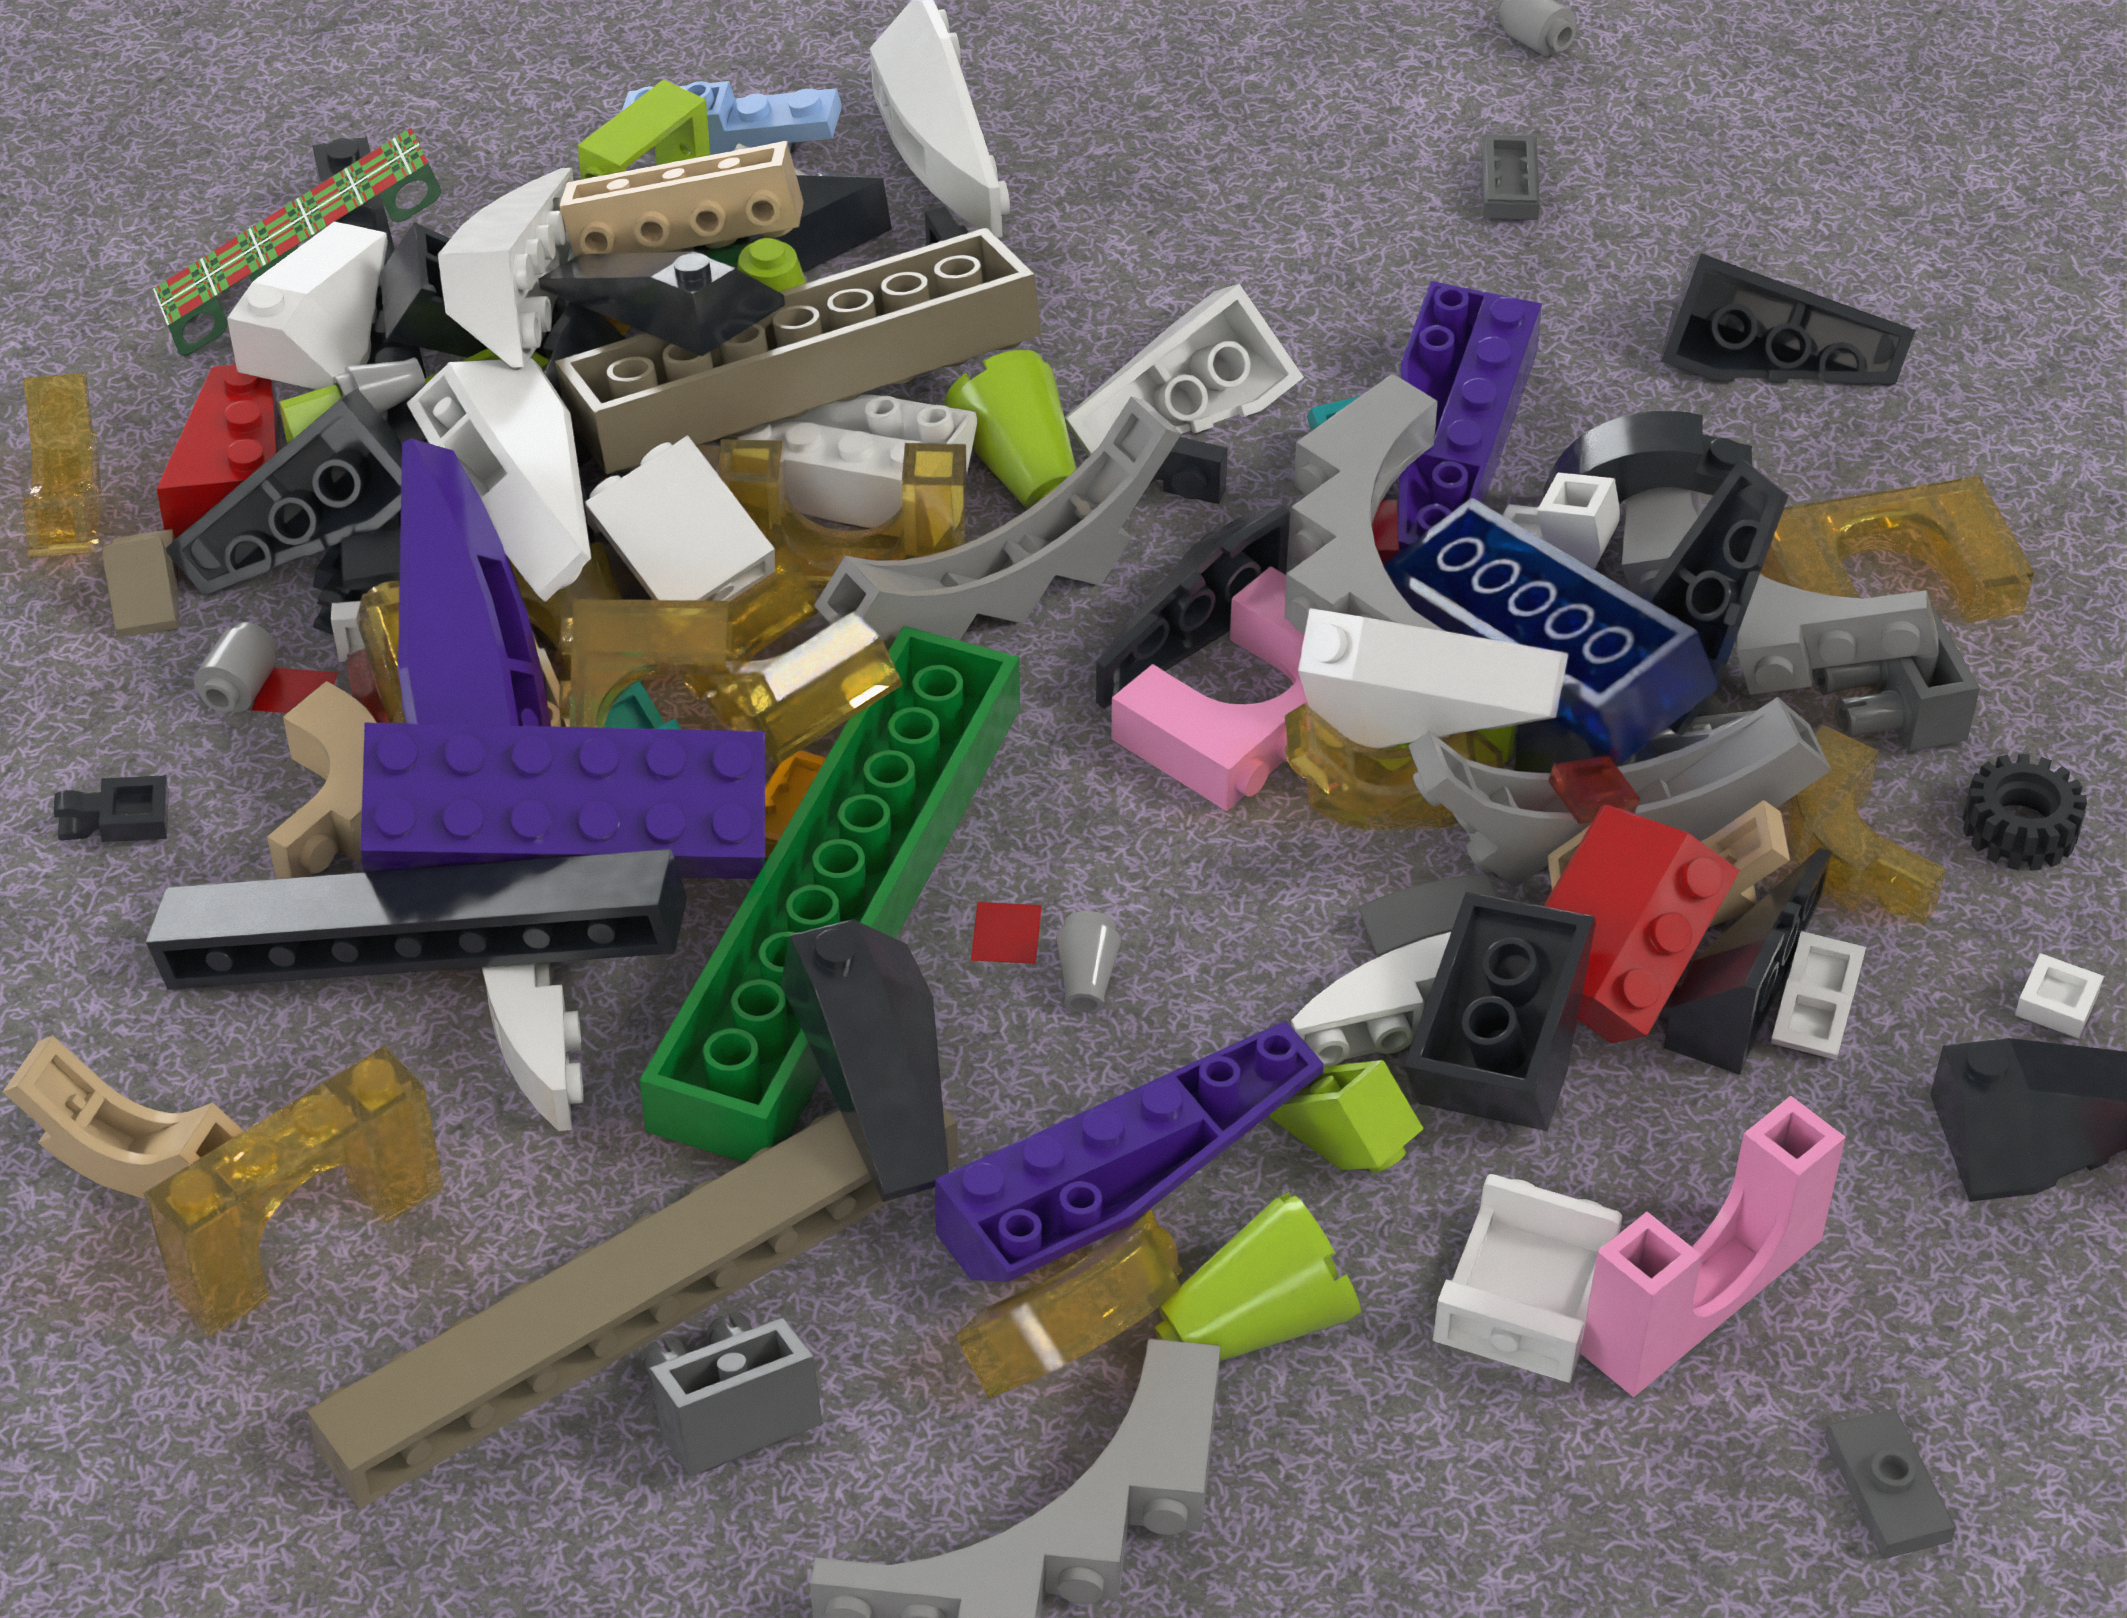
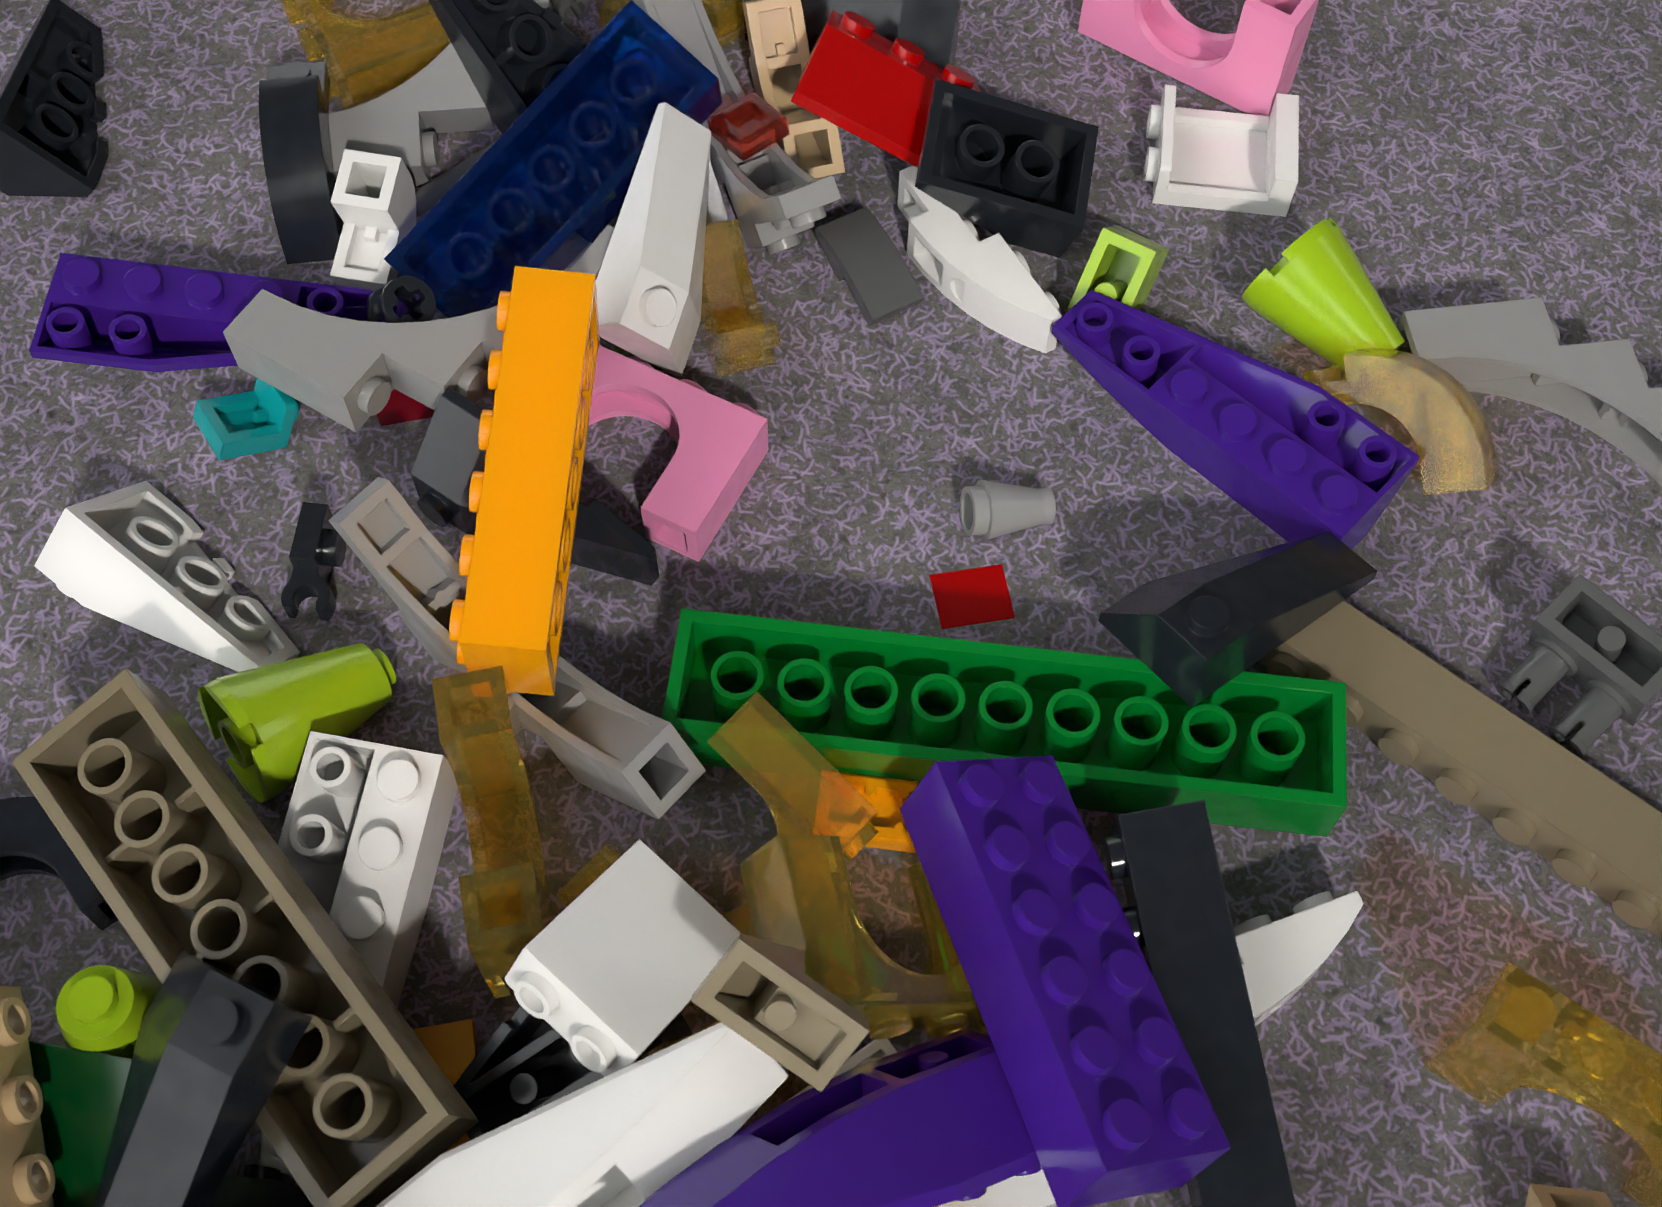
camera: 105 degrees left, 15 degrees up
(585, 545) = (774, 1005): none -> dark tan slope
(1142, 520) = (530, 479): none -> light orange brick
(1419, 505) = (383, 300): none -> black bush

